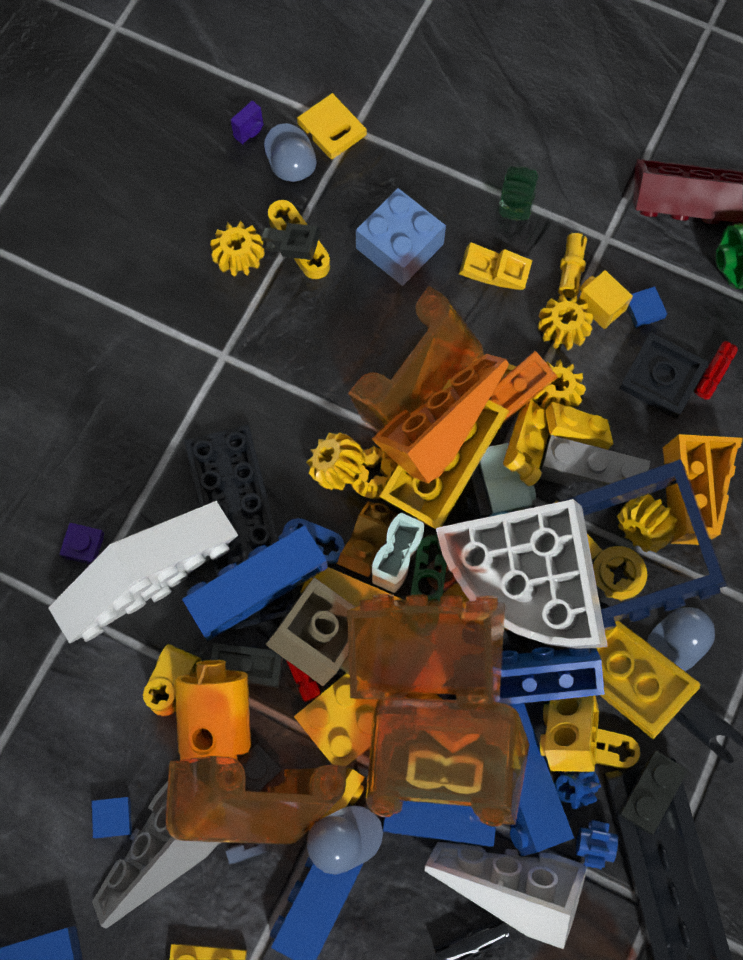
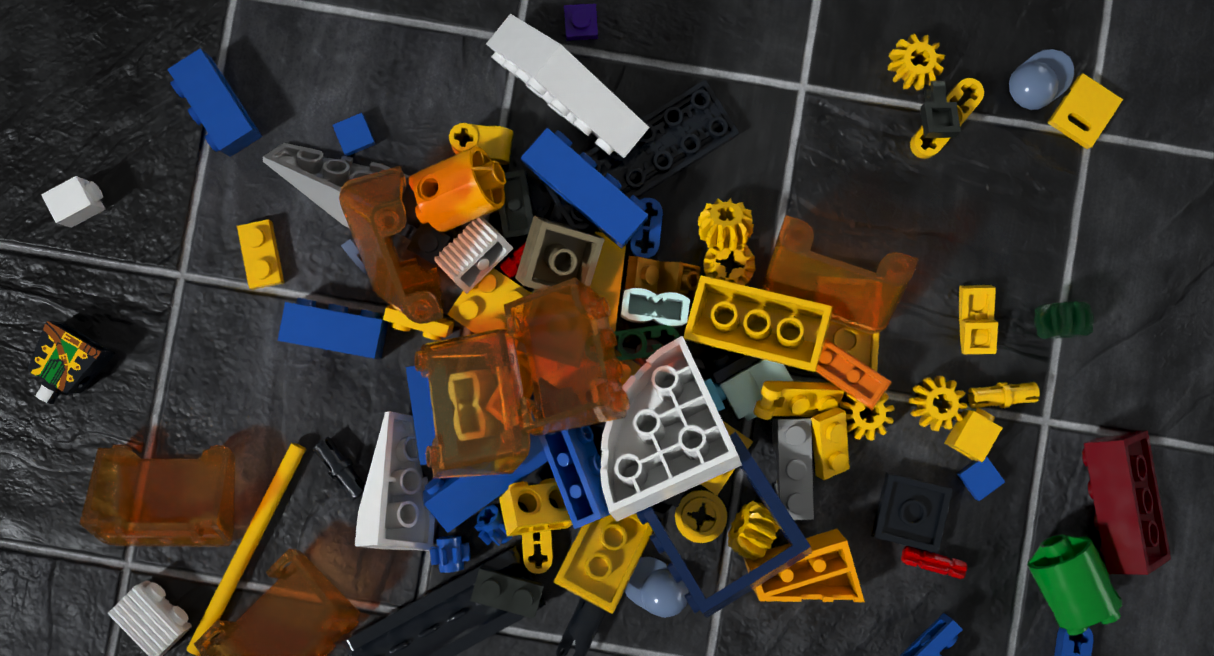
camera: 75 degrees right, 15 degrees up
(247, 122) = (1059, 25): dark purple plate -> none
(284, 722) = (473, 254): none -> white brick
(344, 839) = (387, 336): sand blue cap -> none
(400, 236) = (979, 216): medium blue brick -> none
(435, 431) = (775, 308): orange wedge -> none

